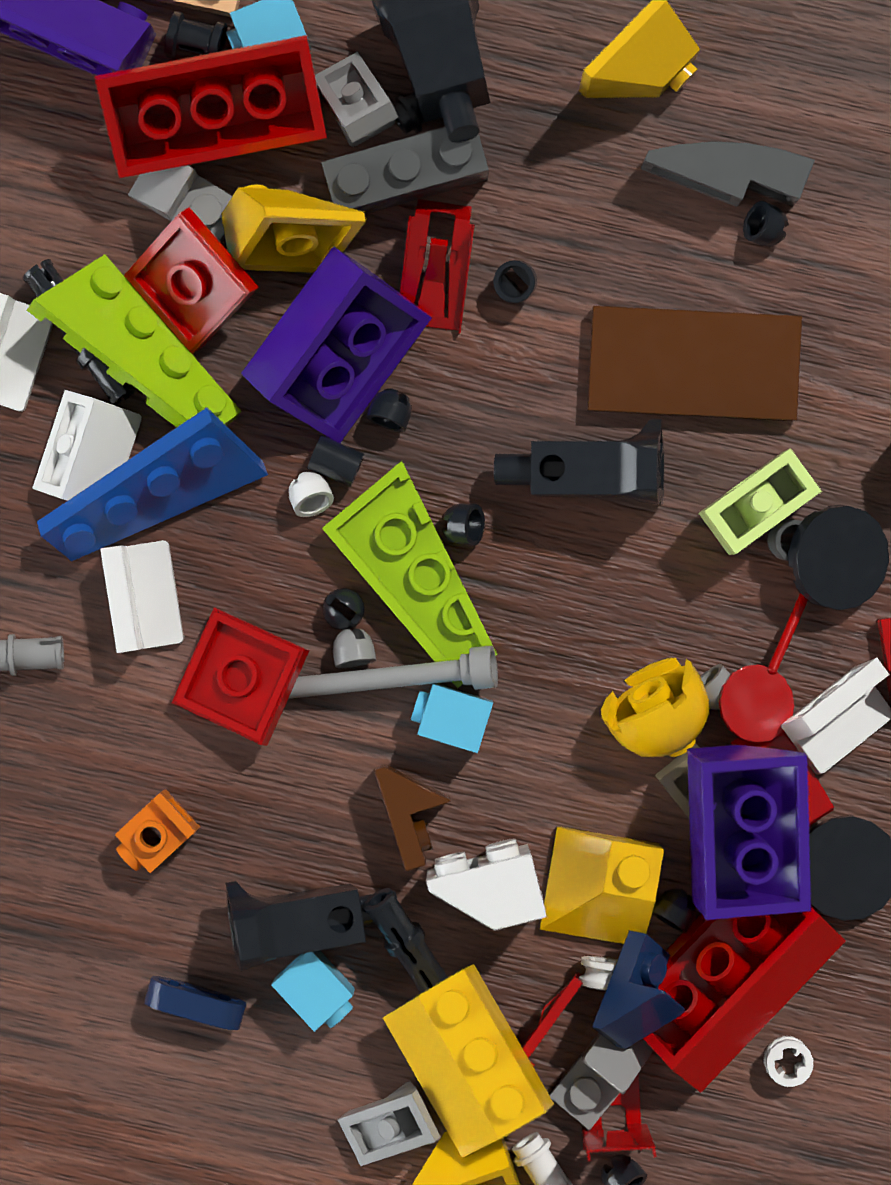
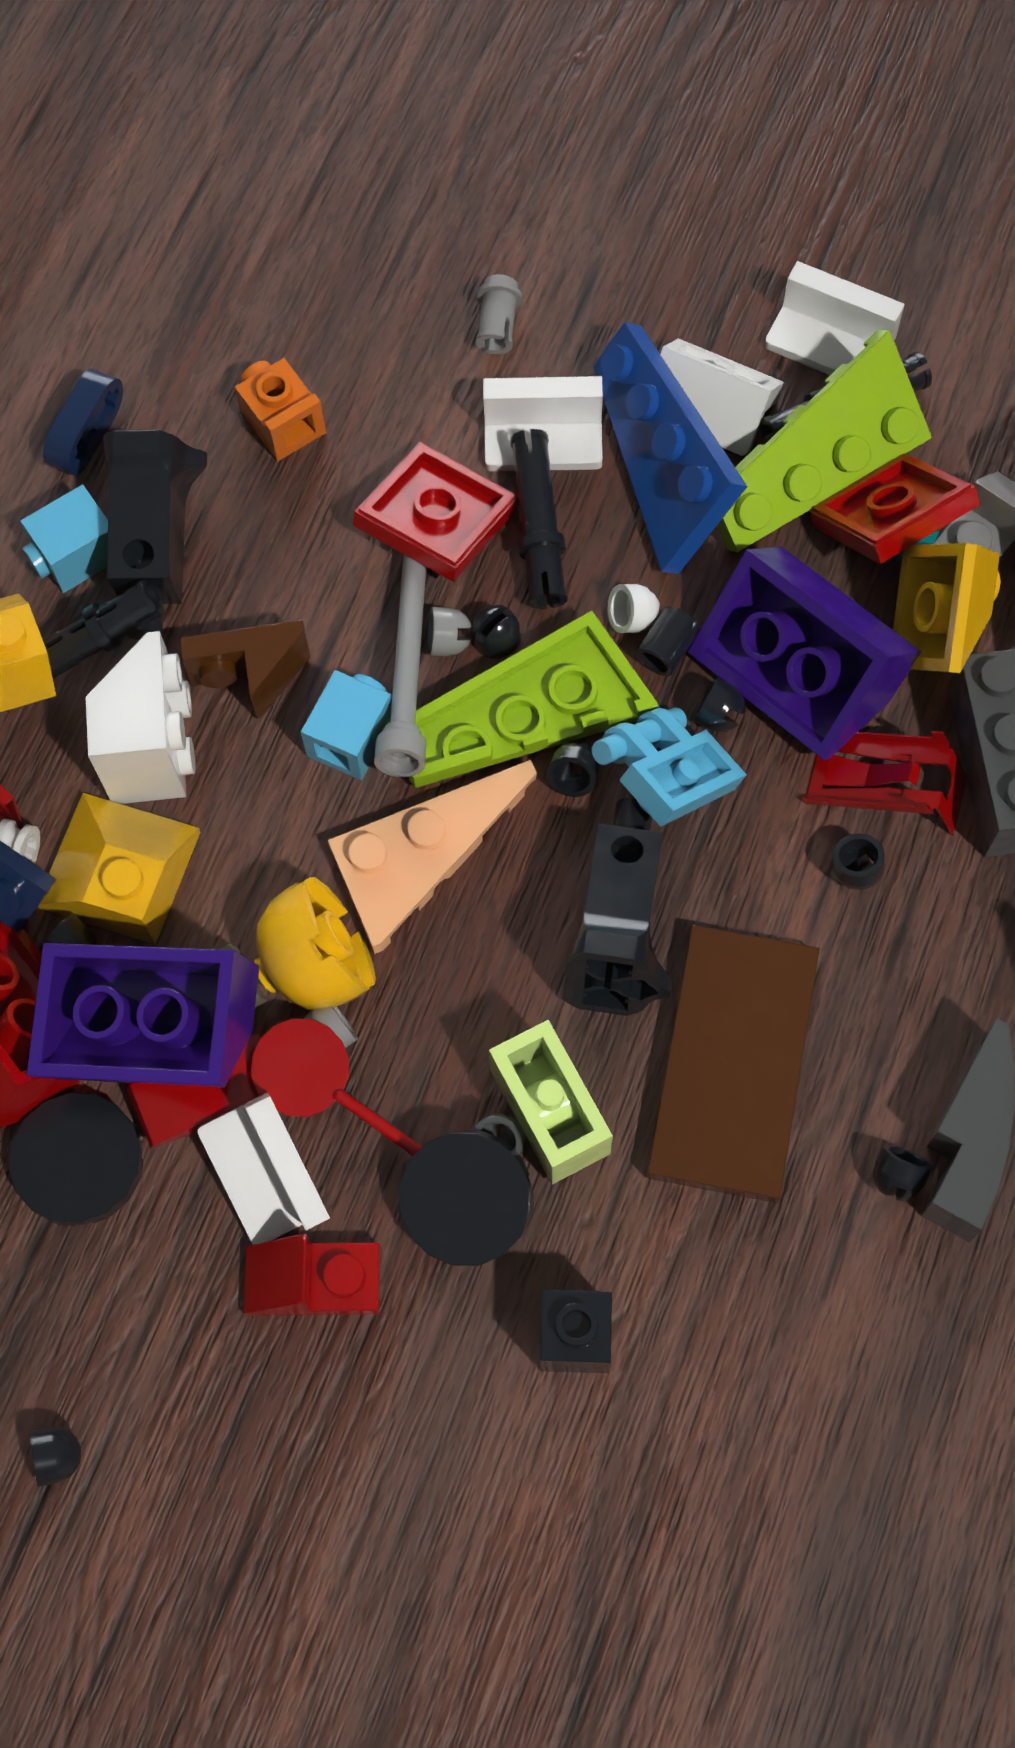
camera: 100 degrees right, 20 degrees down
(235, 586) = (540, 541): none -> black pin
(466, 430) = (678, 777): none -> medium azure plate
(558, 650) = (403, 857): none -> light nougat wing

